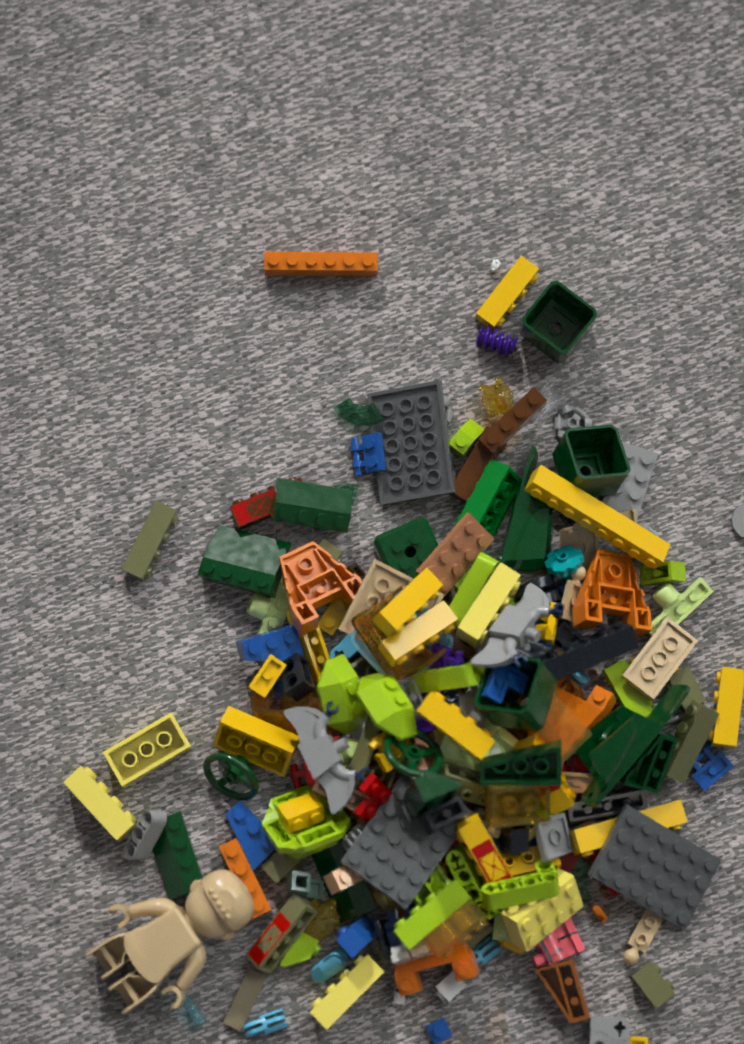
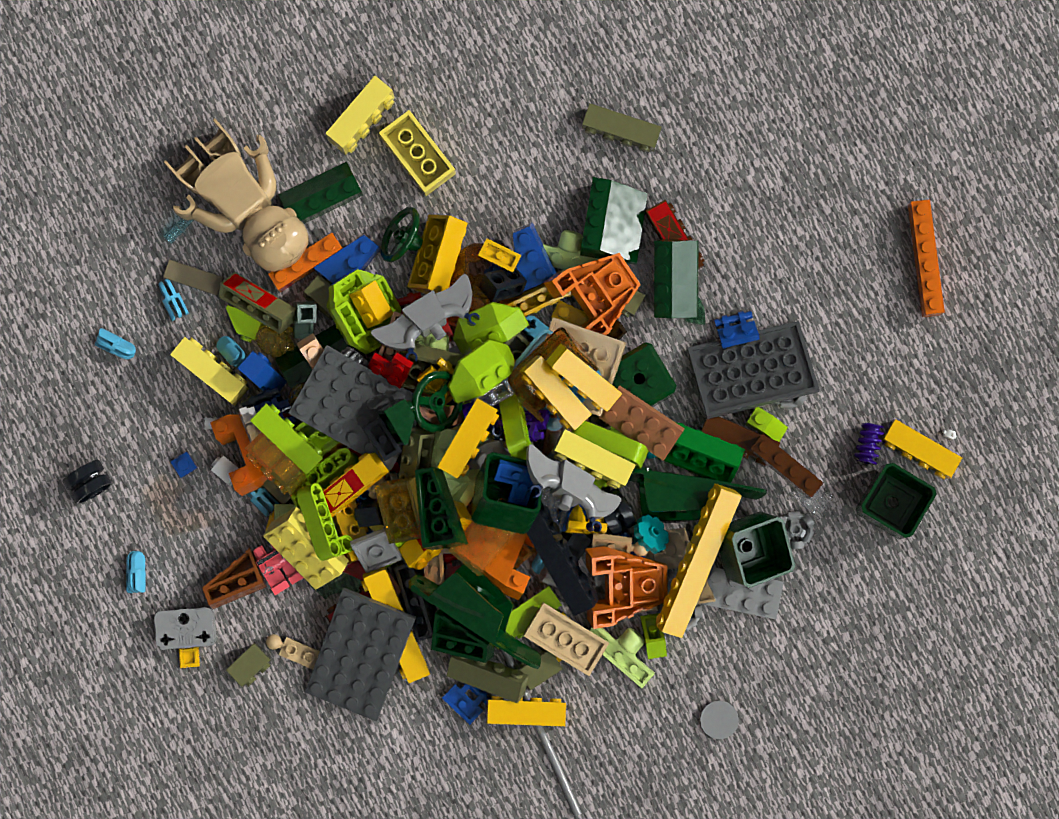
camera: 85 degrees right, 5 degrees up
(145, 834) = (335, 161): light grey beam -> none
(358, 414) = (776, 314): clear green tile -> none
(496, 397) = (811, 449): clear yellow animal -> none
(597, 911) = (312, 605): orange tile -> none

